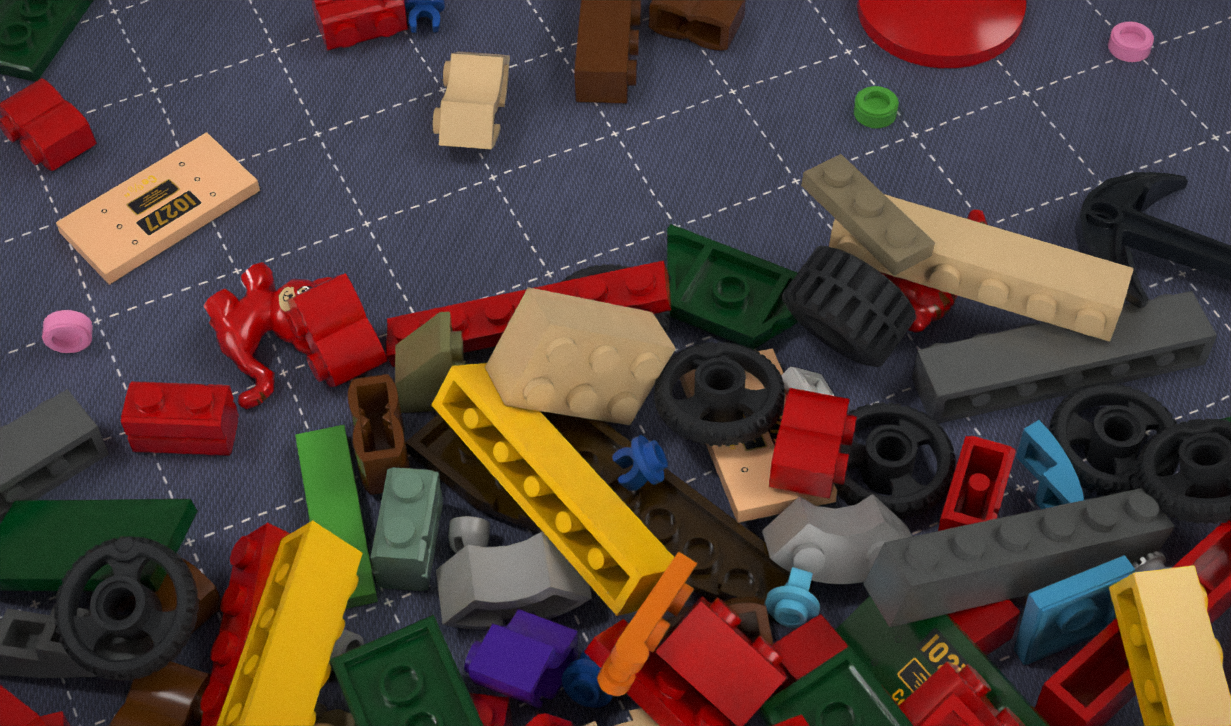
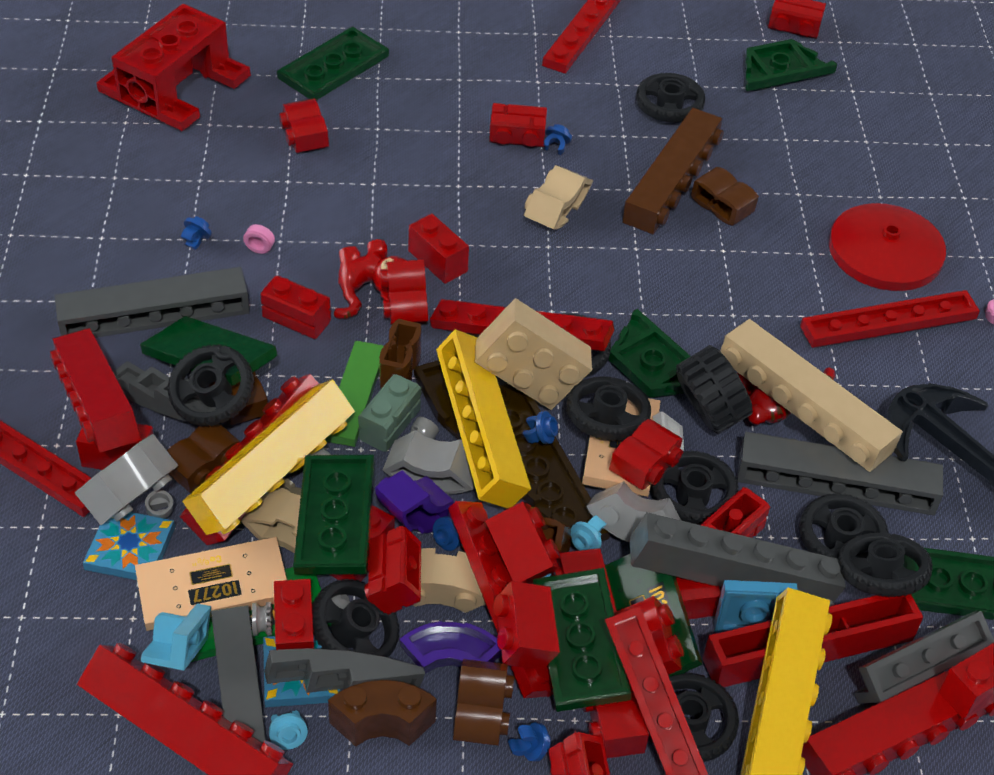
camera: 20 degrees right, 5 degrees down
(157, 207) = (345, 192): light nougat tile -> none
(344, 241) = (439, 247): none -> red brick
(424, 362) = (444, 323): olive slope -> none
(647, 627) = (487, 503): orange plate -> none
(868, 214) = (748, 337): dark tan plate -> none
(876, 107) = (808, 291): bright green tile -> none
(1000, 107) = (889, 318): none -> red plate
(1050, 466) = (792, 524): dark azure slope -> none

